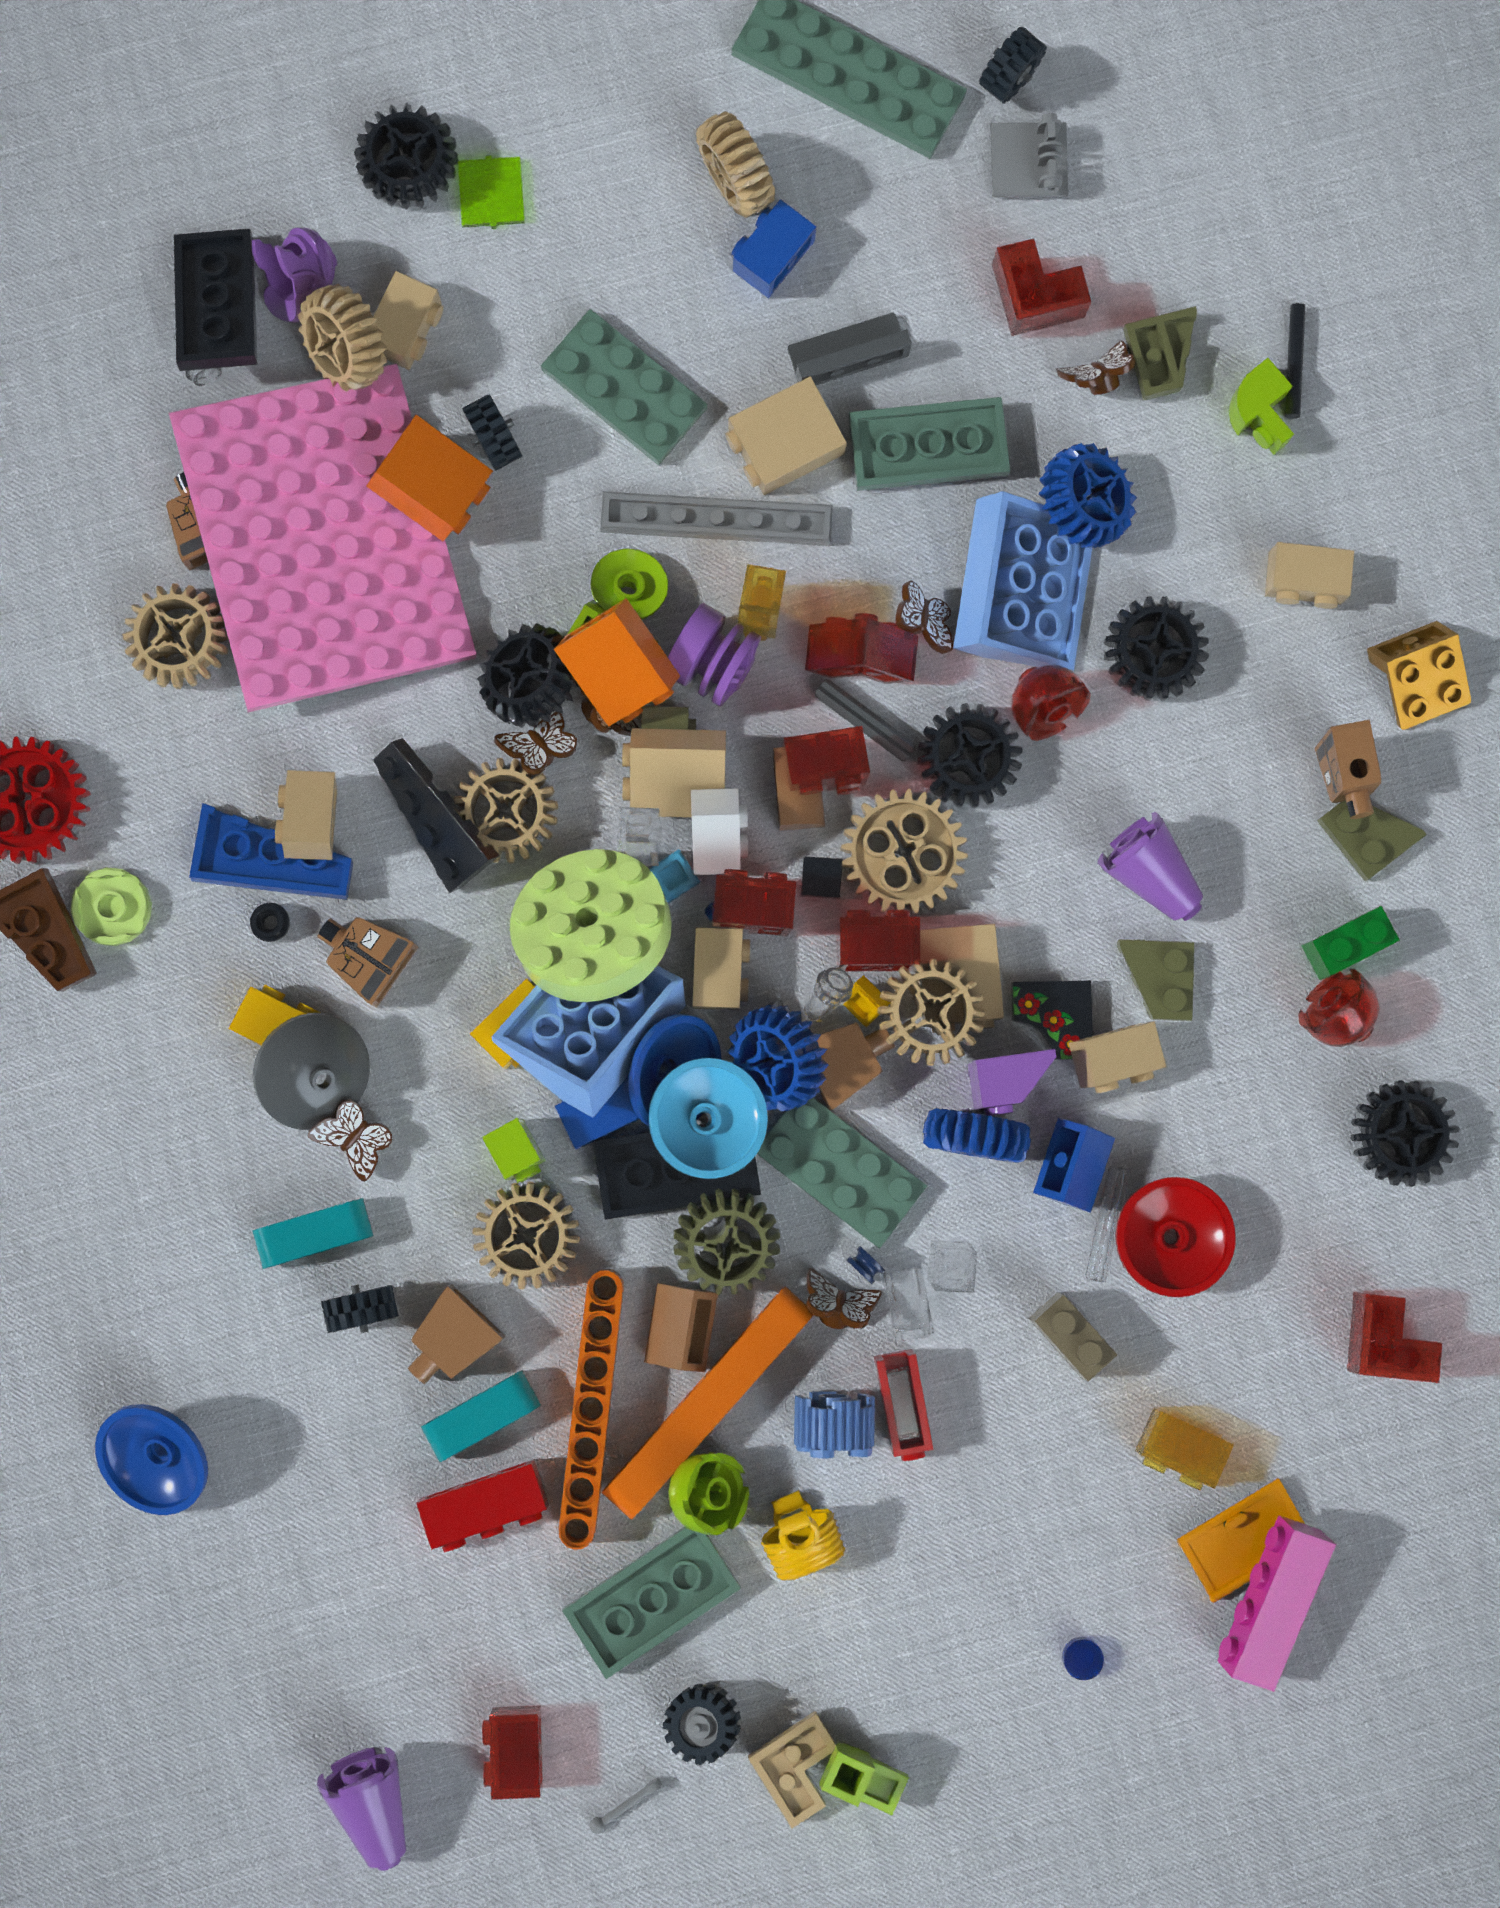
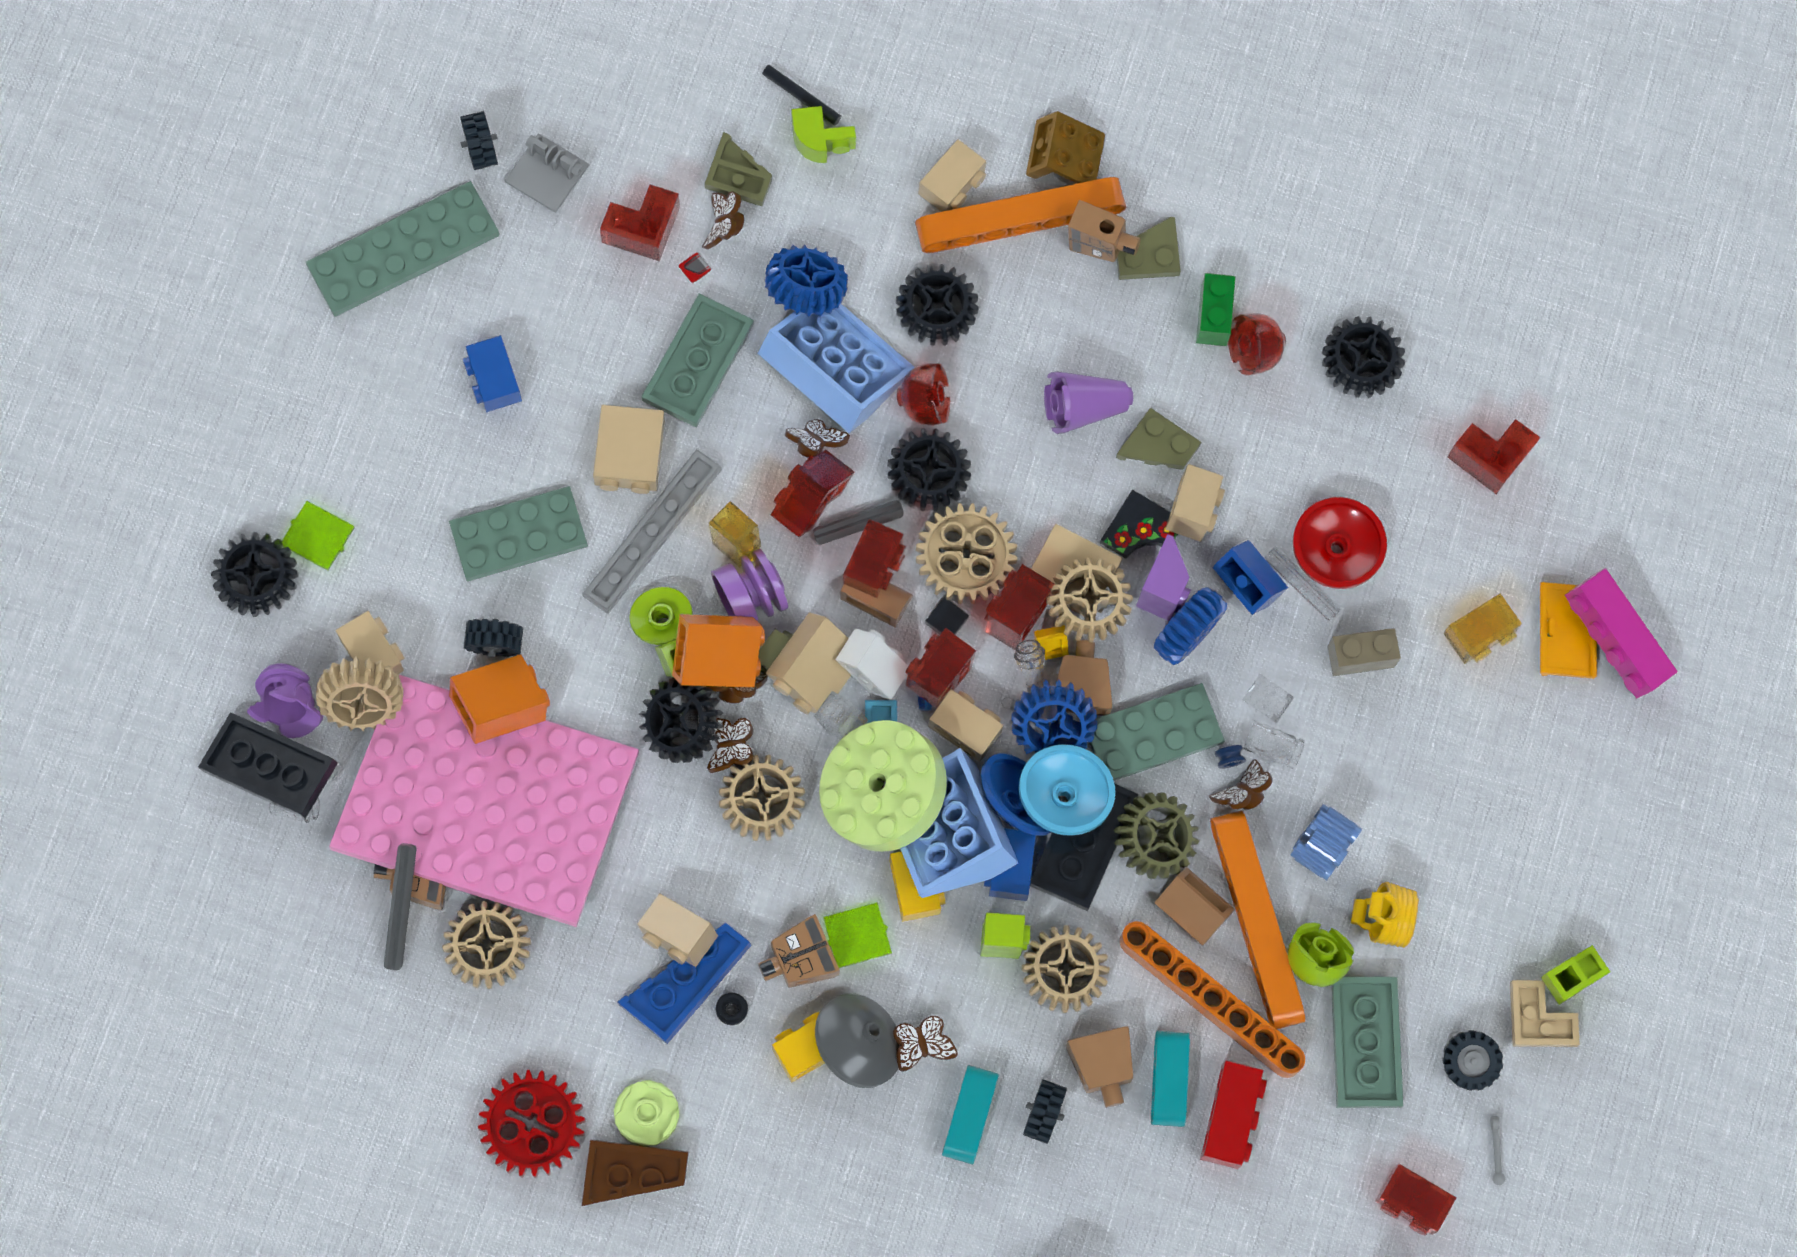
camera: 55 degrees left, 10 degrees down
(154, 523) = (400, 906): none -> dark grey axle
(428, 1000) = (857, 935): none -> clear neon green piece
(430, 812) = (749, 848): black wing -> none
(735, 164) = (421, 359): tan gear -> none
(850, 349) = (596, 371): dark grey panel -> none
(903, 1404) = (1340, 790): red window -> none
(1030, 376) = (694, 267): none -> sticker
(1082, 1658) = (1582, 784): clear blue tile -> none
(1314, 668) = (1015, 215): none -> orange beam

